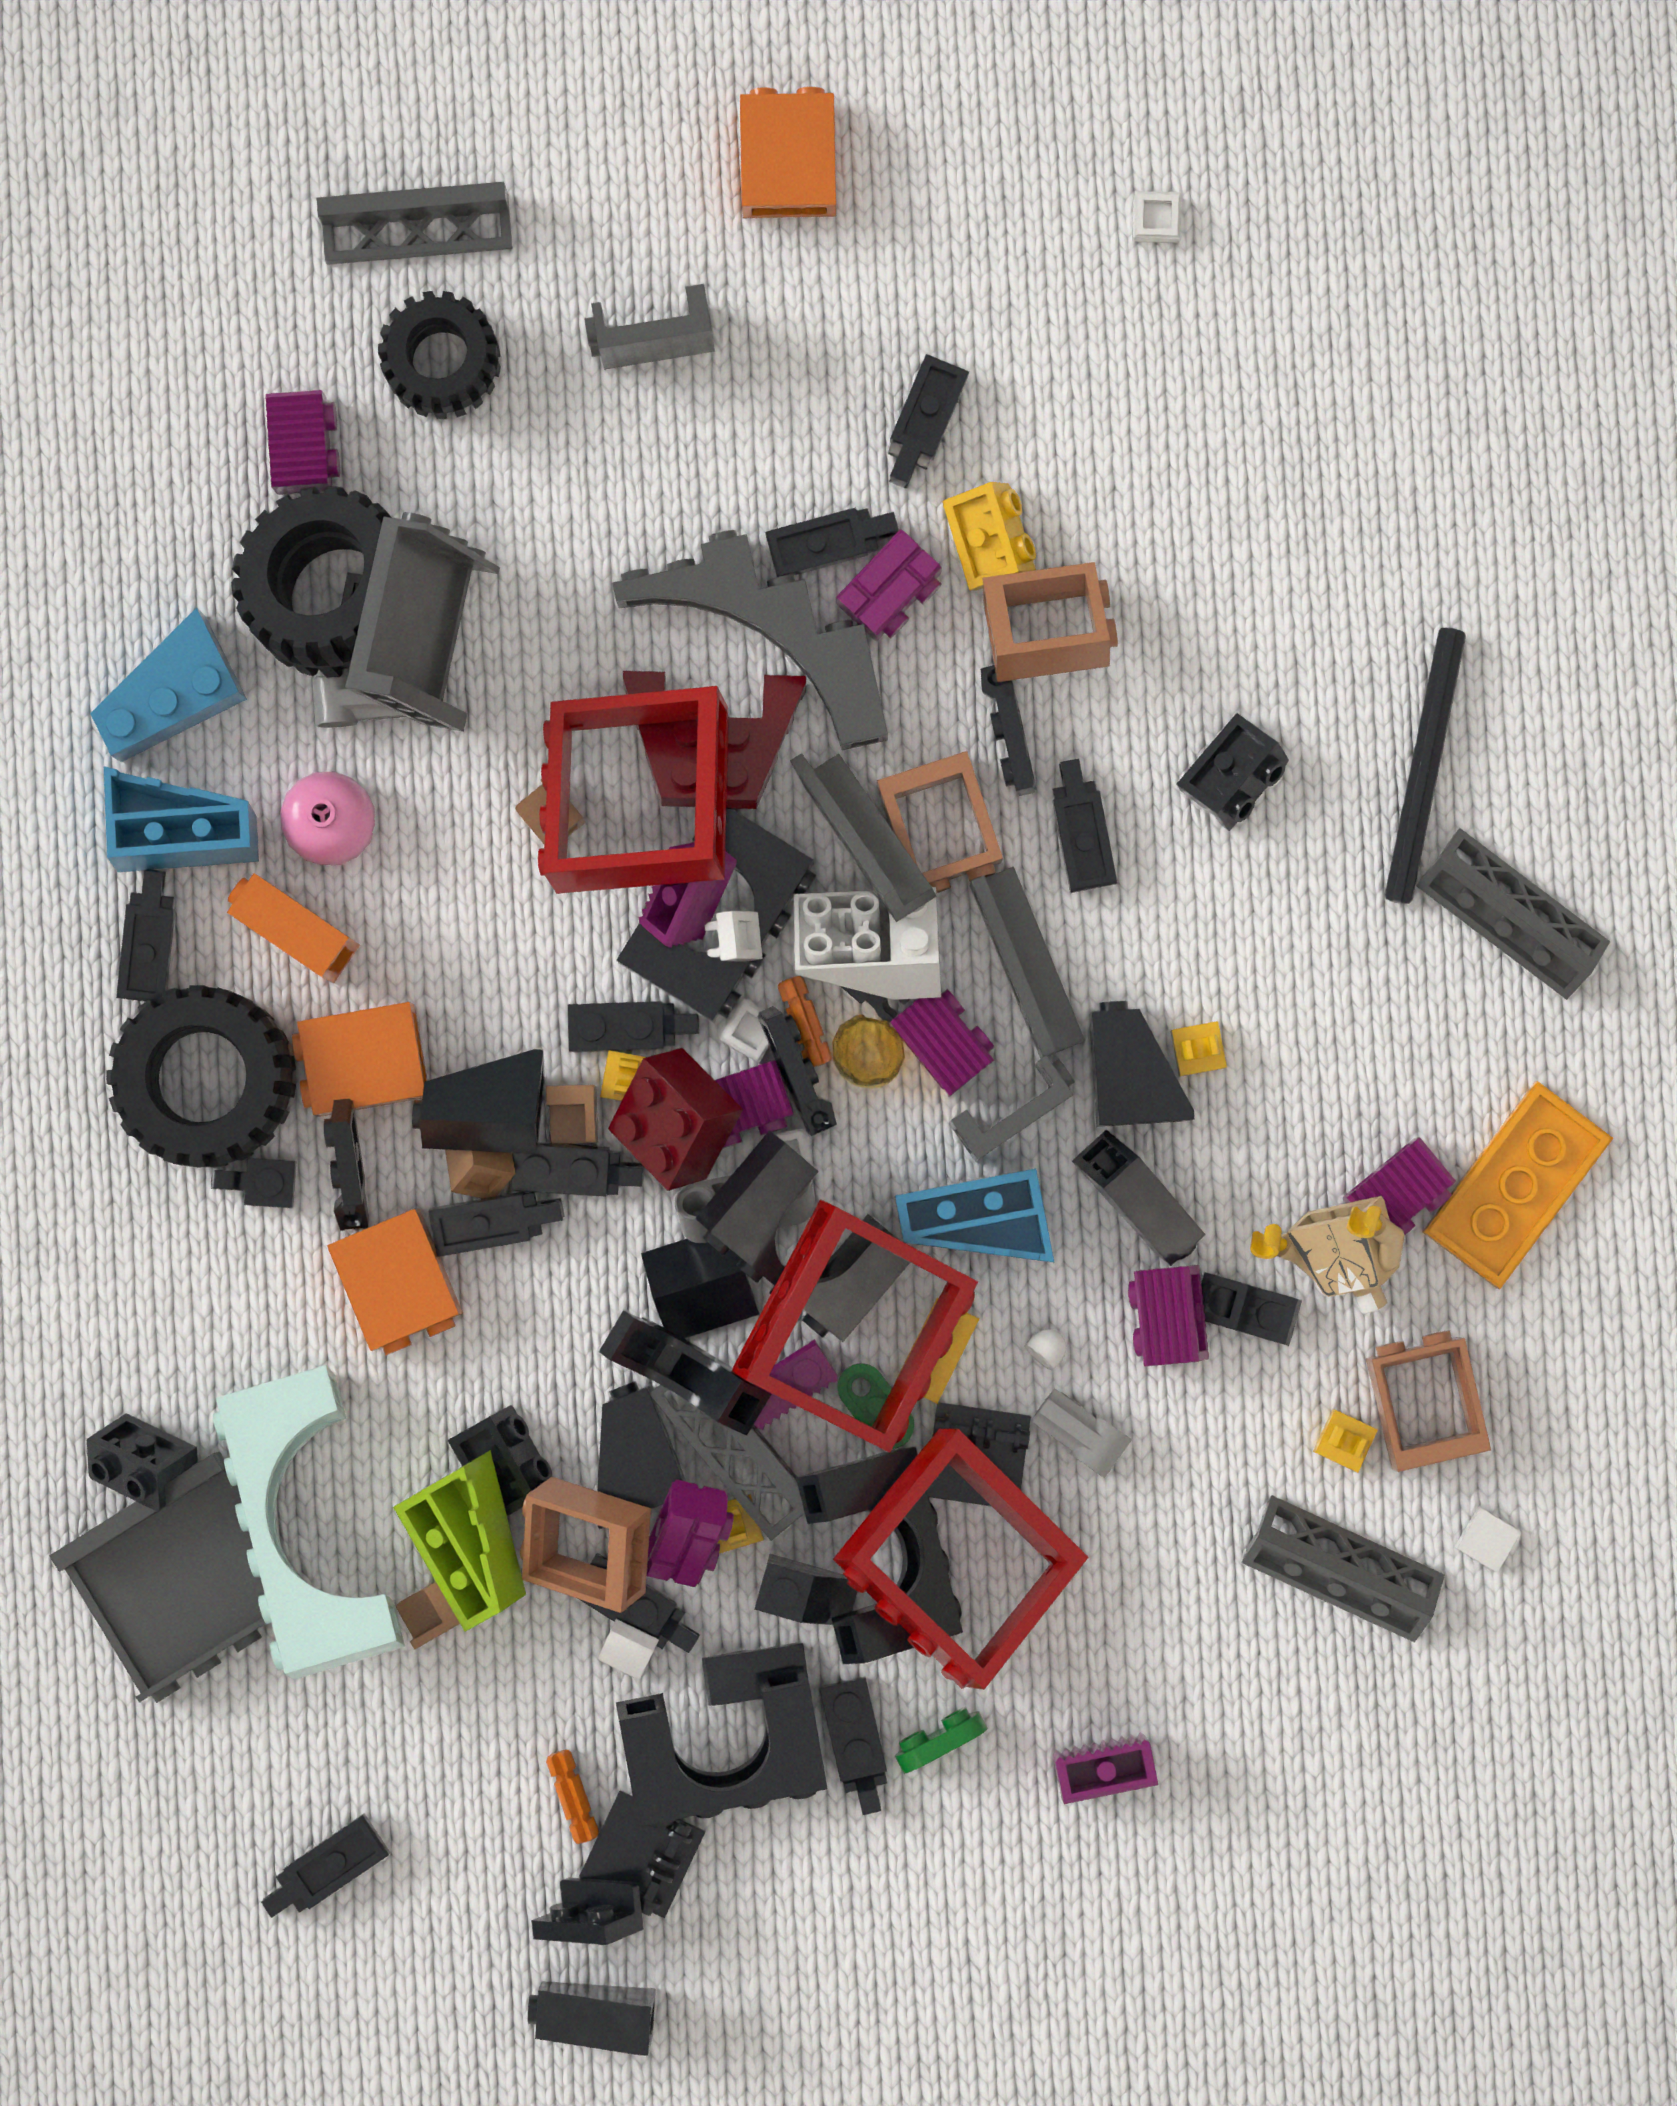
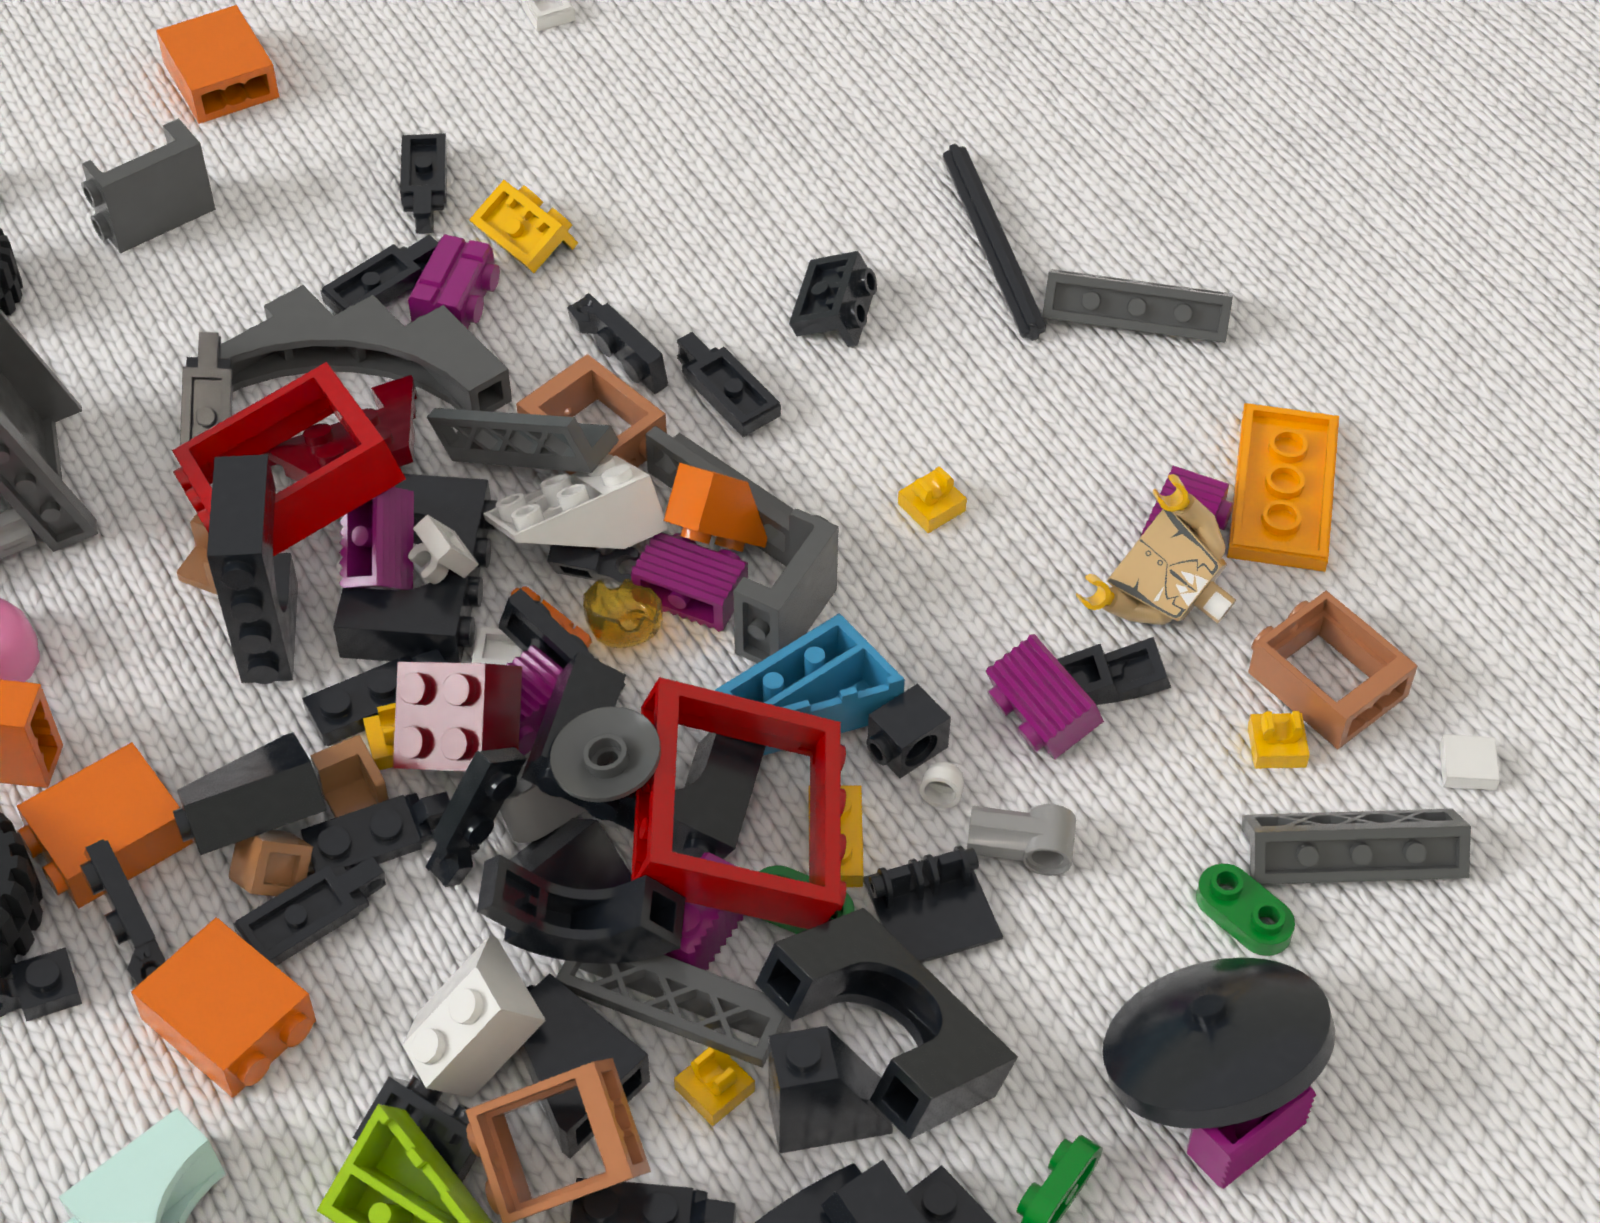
camera: 30 degrees left, 35 degrees down
(560, 903) = (252, 585): none -> black arch
(567, 1397) = (472, 1023): none -> white slope
(605, 642) = (205, 388): none -> hinge
(651, 1217) = (472, 812): none -> black hinge
(688, 1533) = (668, 1087): magenta brick -> none
(734, 1259) = (601, 738): none -> dark grey dish
(984, 1001) = (716, 506): none -> orange slope
(1041, 1289) = (908, 731): none -> black brick
(1050, 655) = (607, 250): nougat window -> none
(1064, 1556) = (950, 1028): red window -> none
(1115, 1702) = (1219, 1043): none -> black dish
(1131, 1071) = (886, 533): black slope -> none
(1139, 1197) = (951, 615): black slope -> none
(1221, 1579) = (1241, 908): none -> green plate

